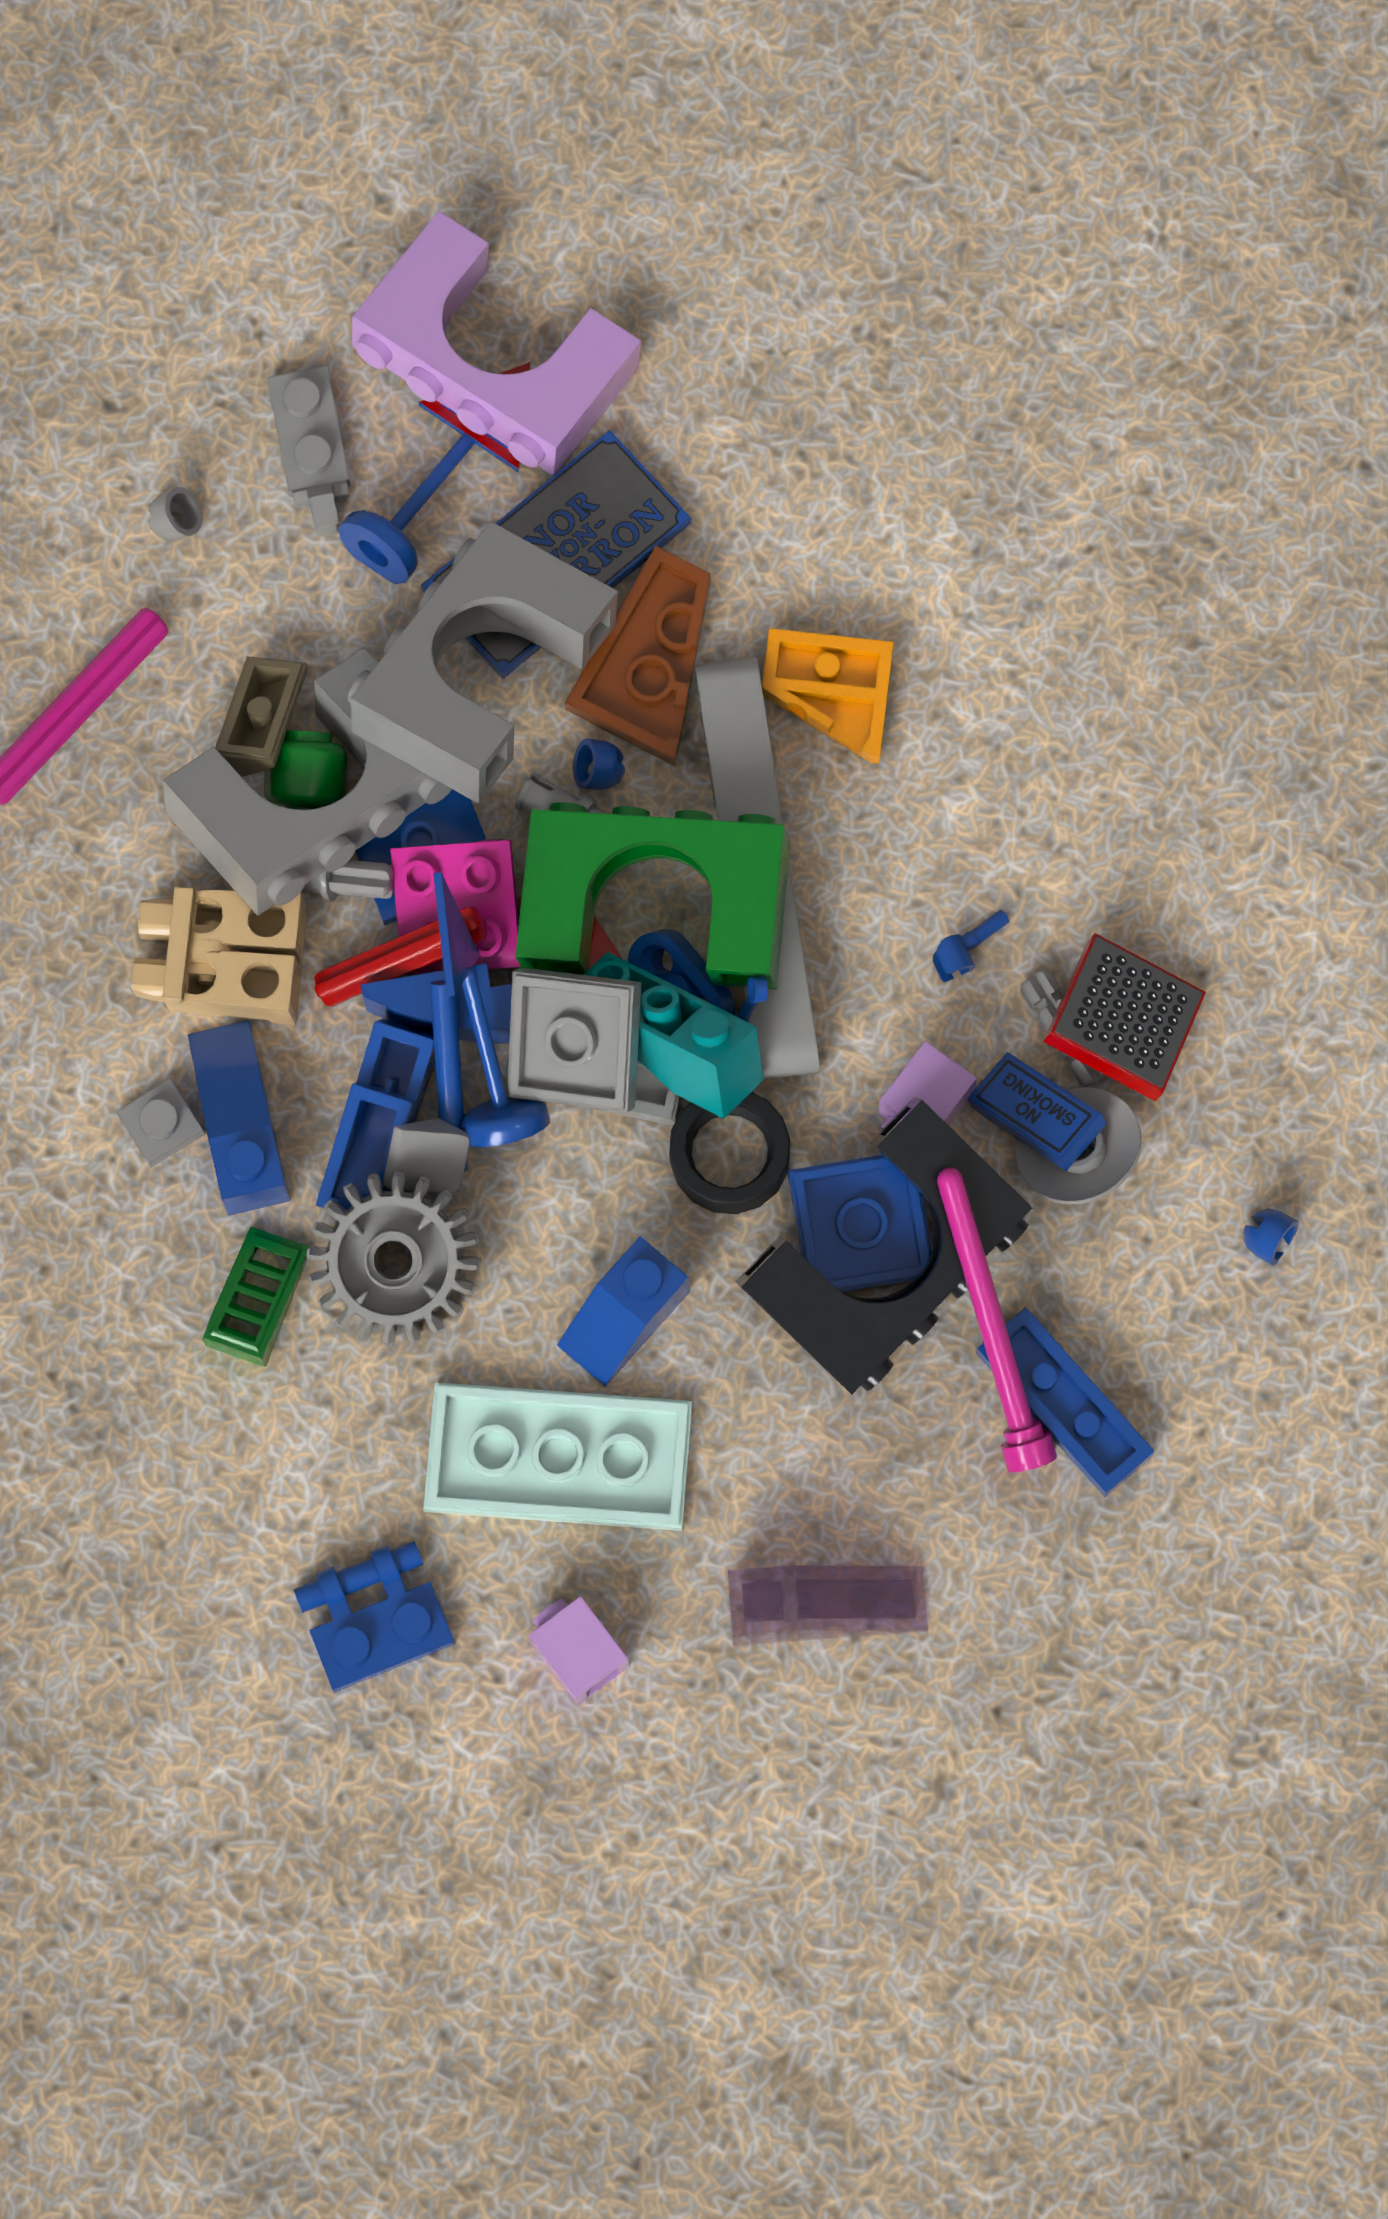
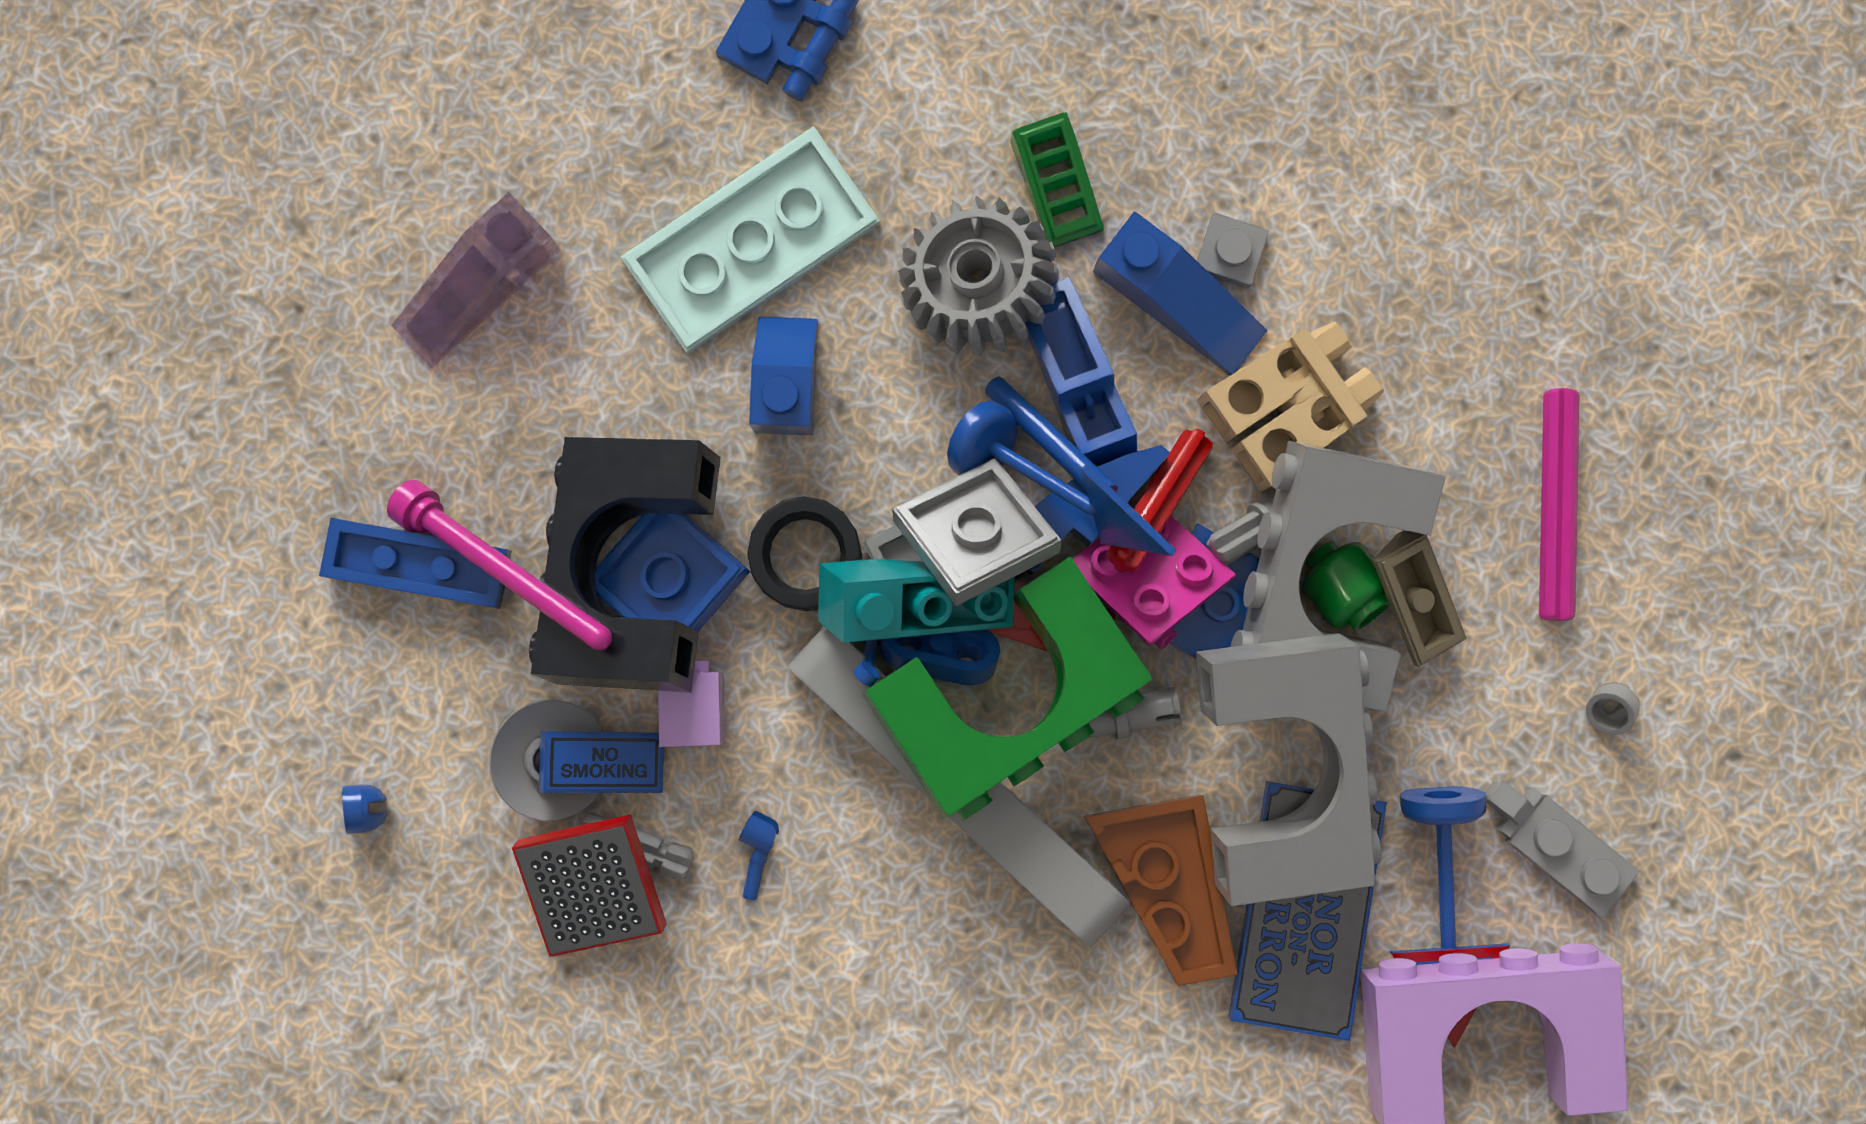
camera: 130 degrees right, 10 degrees up
(428, 1150) = (1017, 373): light grey slope -> none
(577, 1648) = (622, 110): lavender brick -> none
(606, 767) = (1131, 769): blue hinge -> none
(832, 685) = (1016, 973): light orange wing -> none

